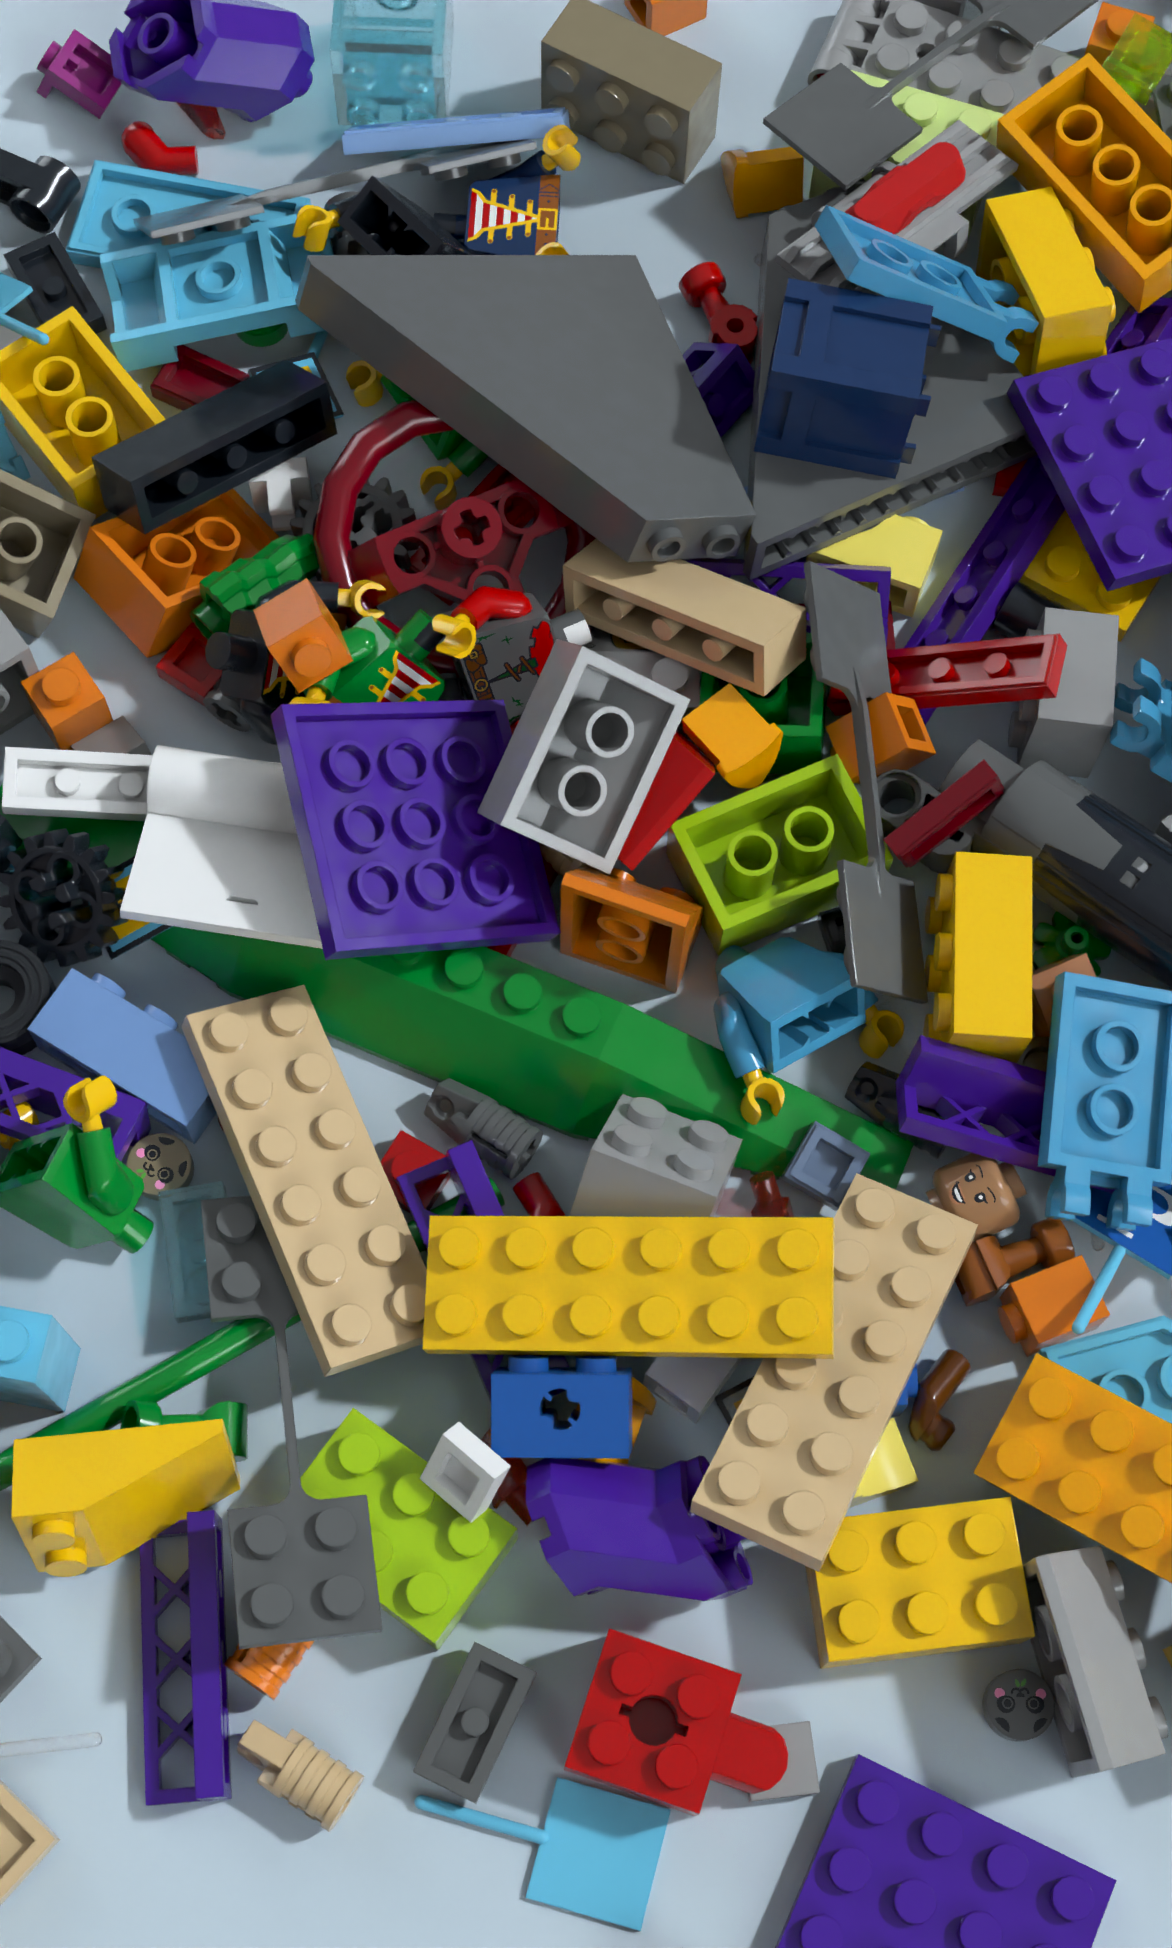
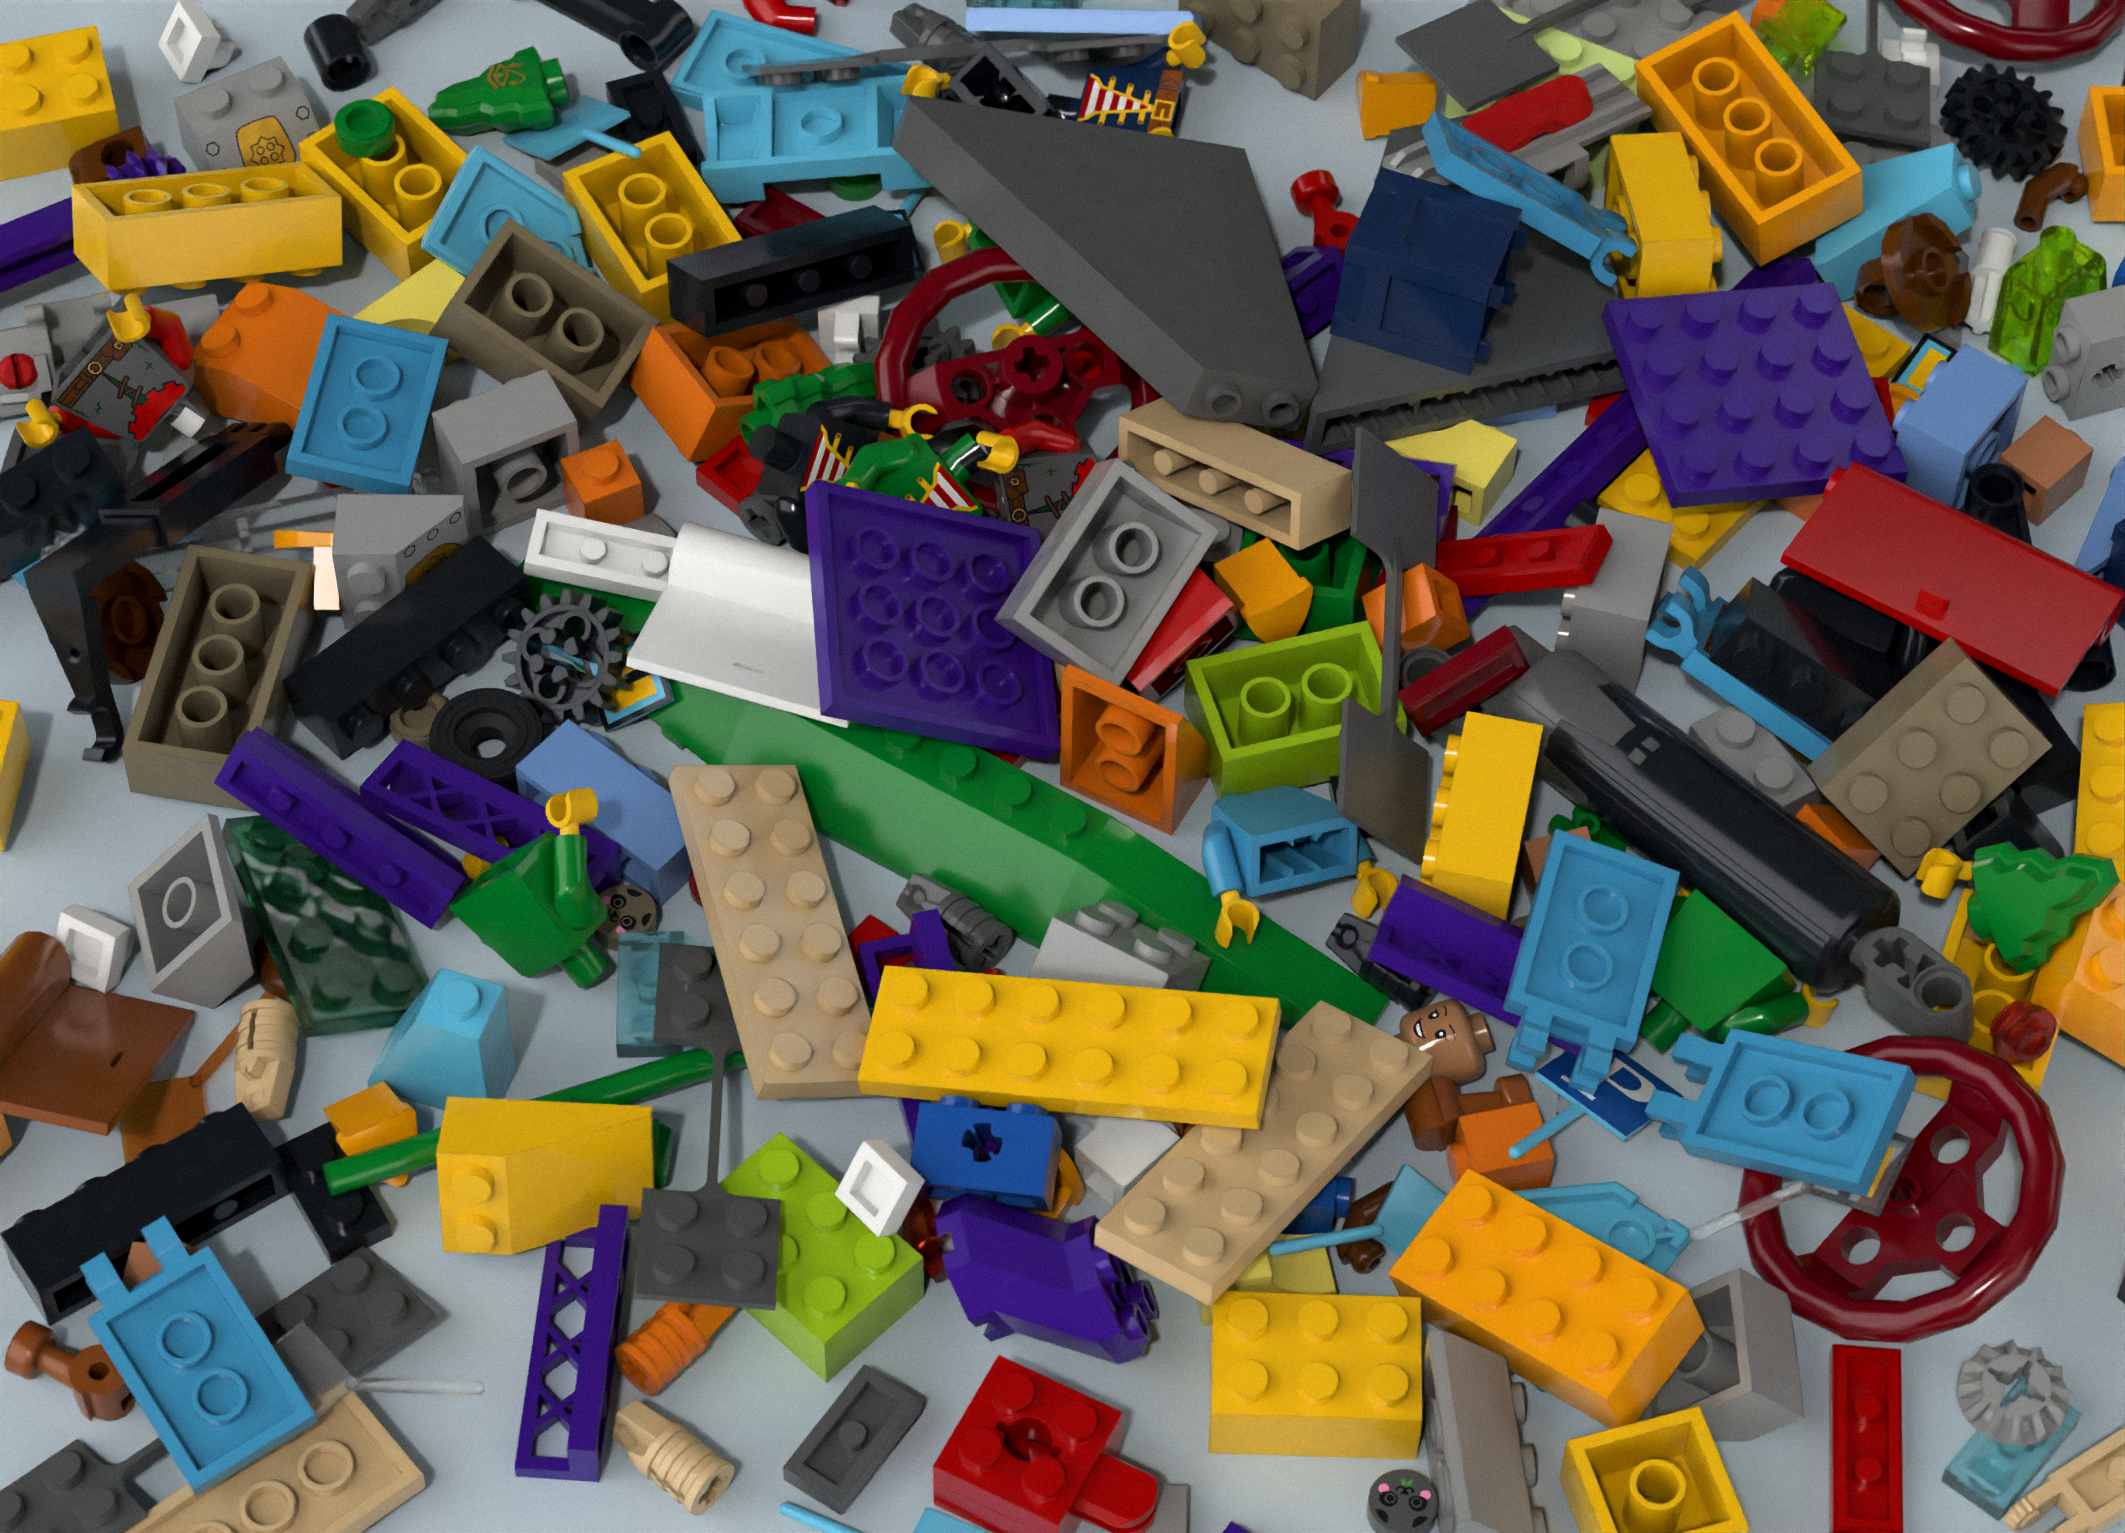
camera: 10 degrees right, 15 degrees down
(302, 635) = (847, 432): orange brick -> none
(309, 159) = (924, 27): none -> dark grey hinge
(825, 1165) = (1297, 990): sand blue tile -> none
(975, 1399) = (1398, 1222): none -> medium azure piece

